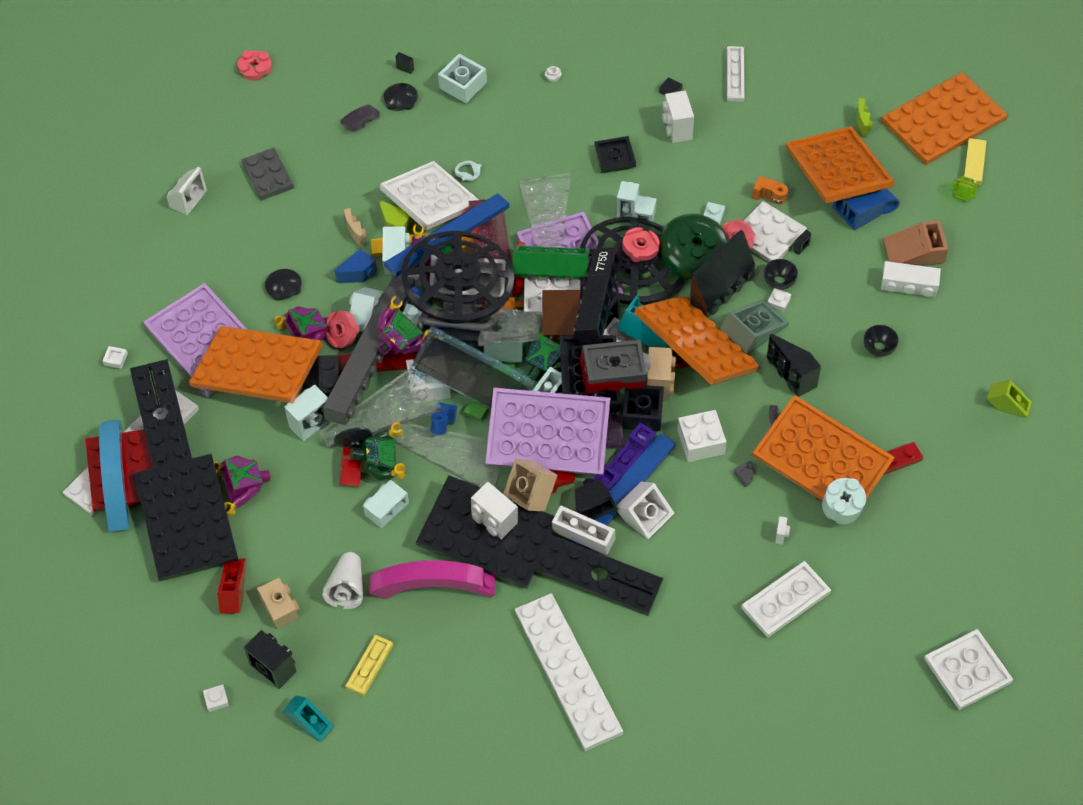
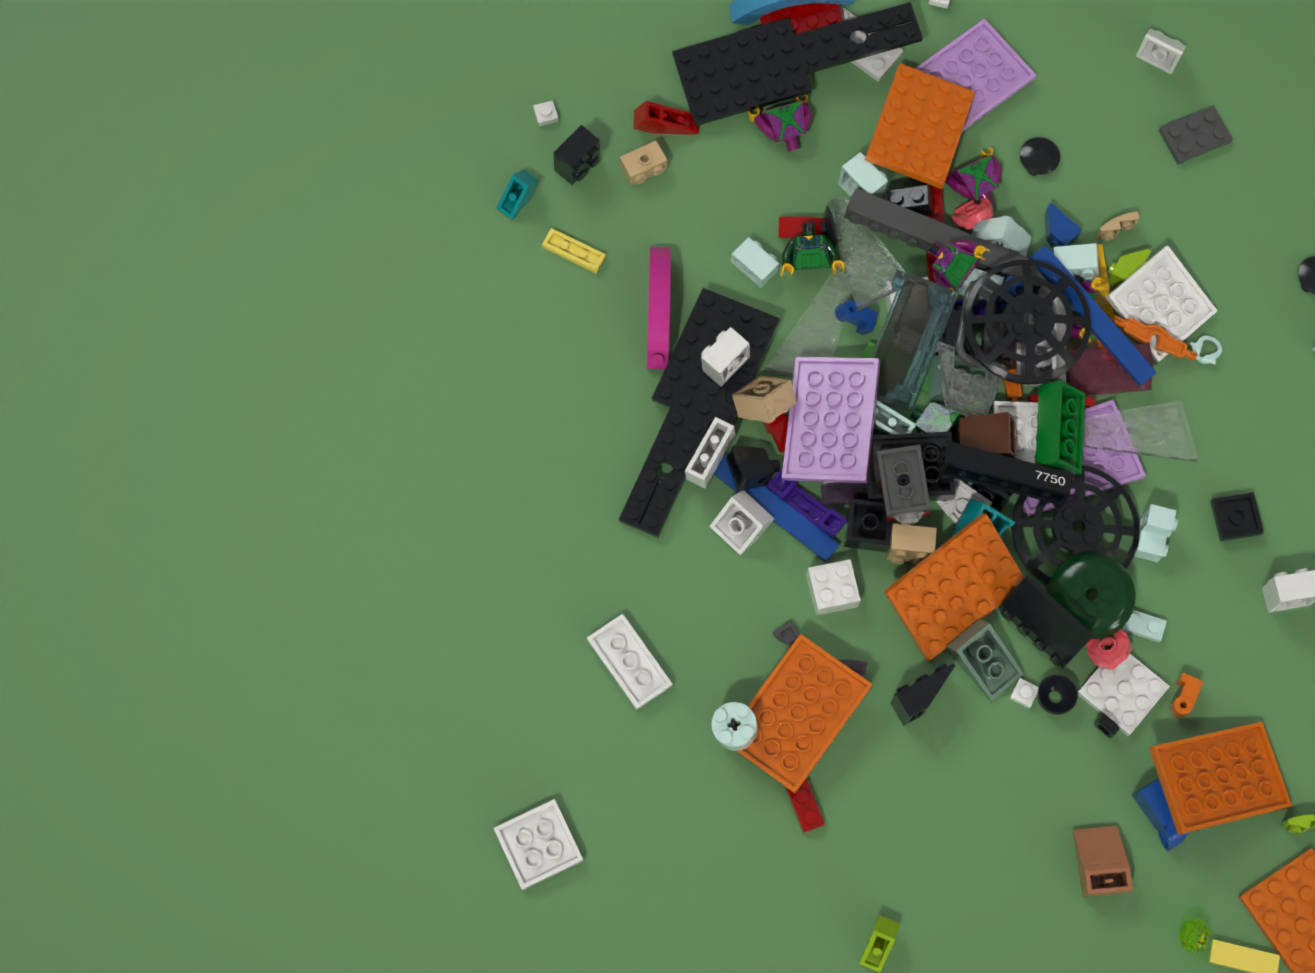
camera: 85 degrees right, 15 degrees up
(345, 583) = (664, 223): white cone -> none
(357, 118) = (1284, 231): clear purple slope -> none
(459, 198) = (1164, 342): none -> orange piece
(569, 672) = (558, 438): white plate -> none
(636, 252) = (1096, 533): coral plate -> none
(782, 530) = (711, 664): white plate -> none
(881, 334) = (969, 794): black piece -> none
(910, 279) = (1052, 849): white brick -> none

